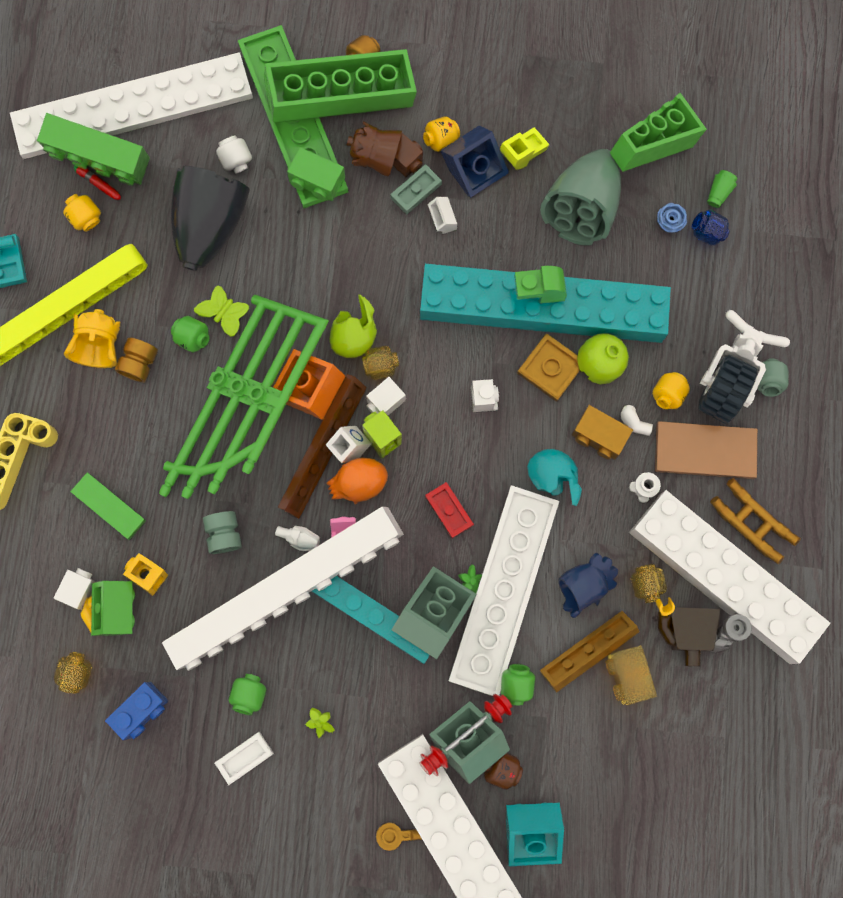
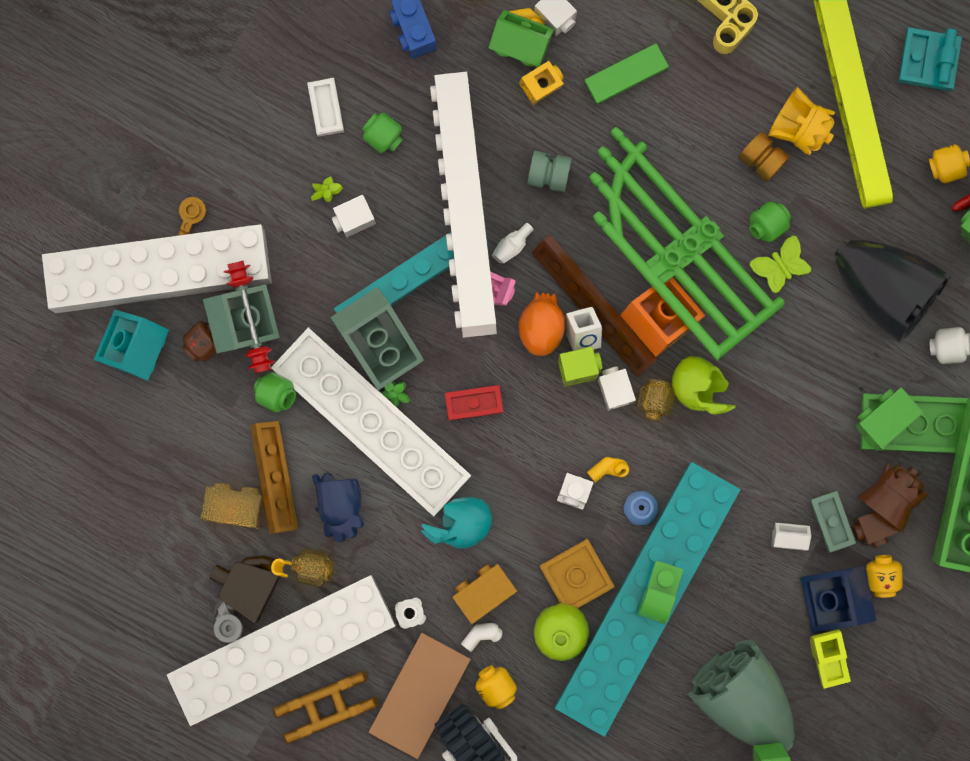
camera: 120 degrees right, 5 degrees up
(333, 686) = (353, 216): none -> white brick
(450, 378) = (609, 466): none -> yellow arm
(473, 347) = (632, 511): none -> medium blue plate

